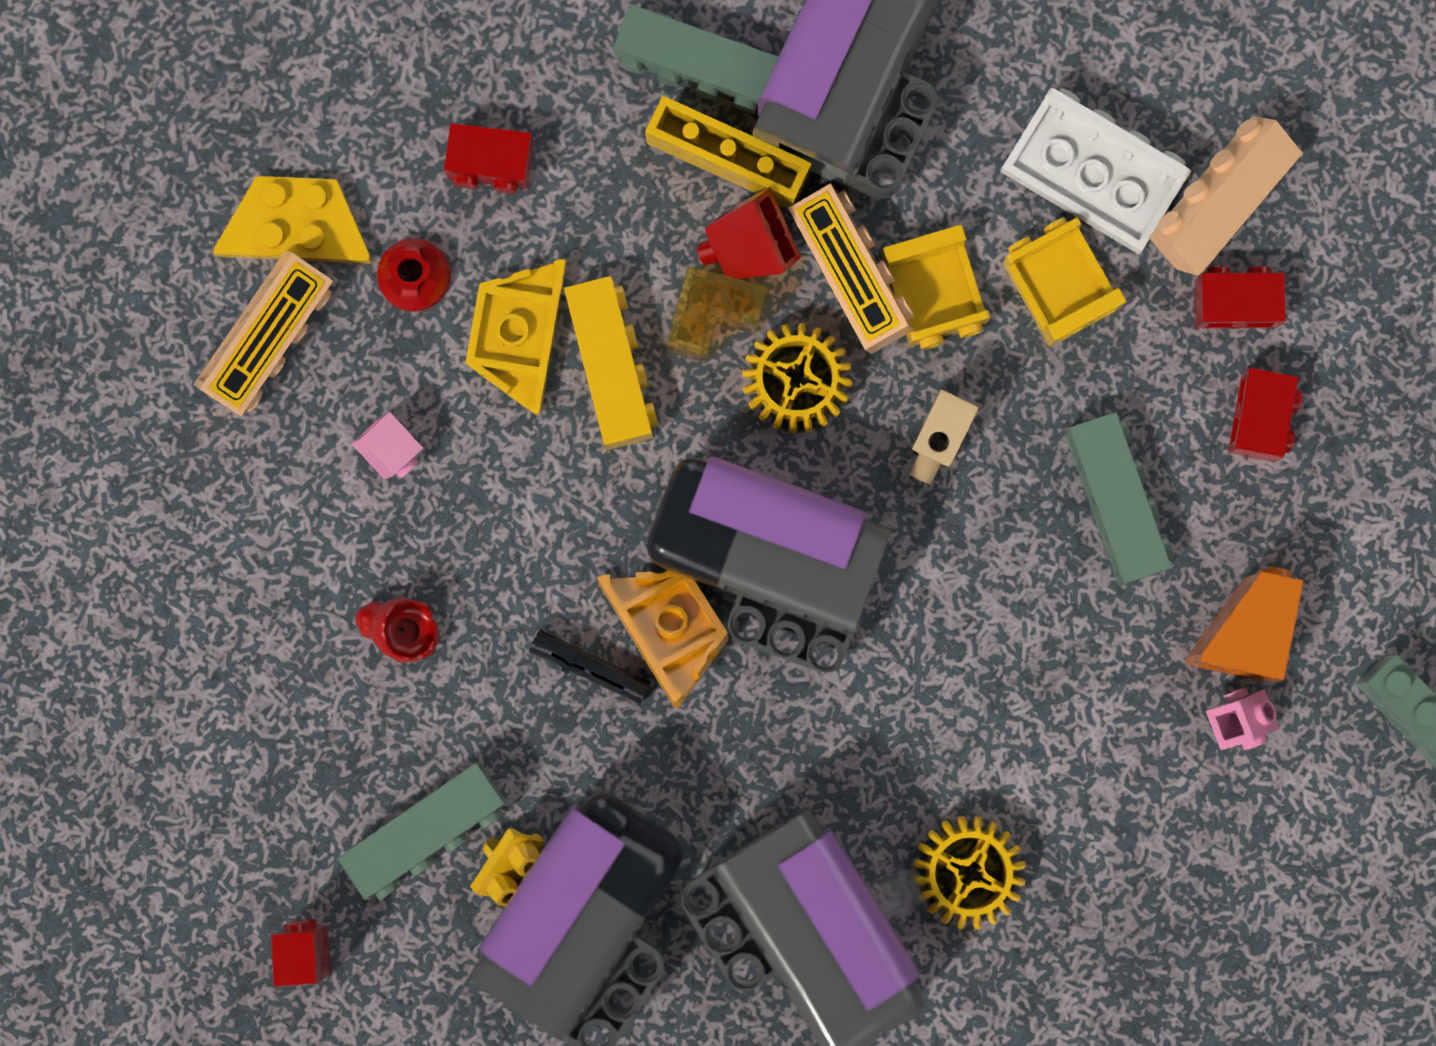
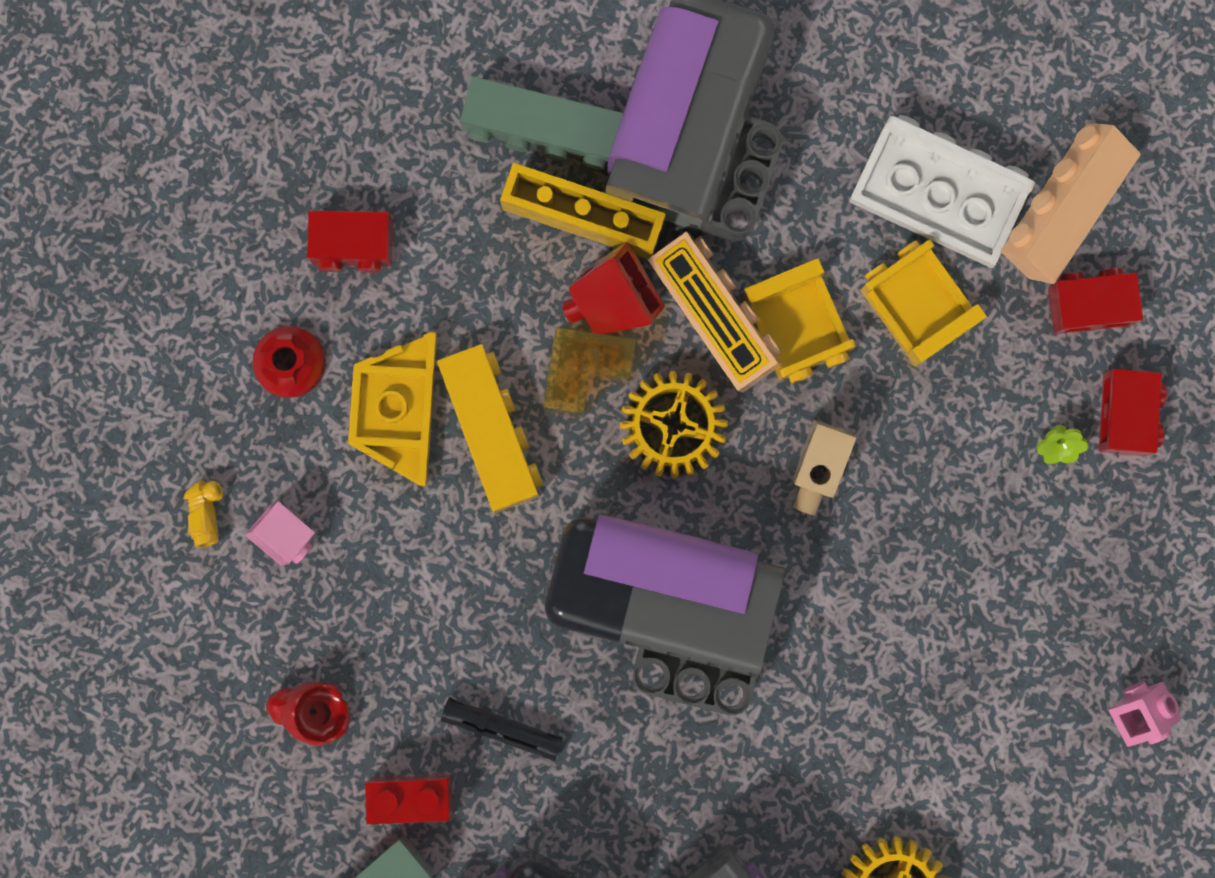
camera: 10 degrees left, 0 degrees up
(264, 333) = (147, 436): brick -> none
(296, 217) = (166, 322): yellow wing -> none
(310, 419) = (202, 515): none -> yellow arm
(489, 725) = (409, 799): none -> red brick
(669, 627) = (575, 683): light orange wing -> none
(1118, 498) = (1000, 511): sand green brick -> none
(1190, 441) = (1062, 445): none -> lime plant
(1253, 628) = (1145, 623): orange slope -> none

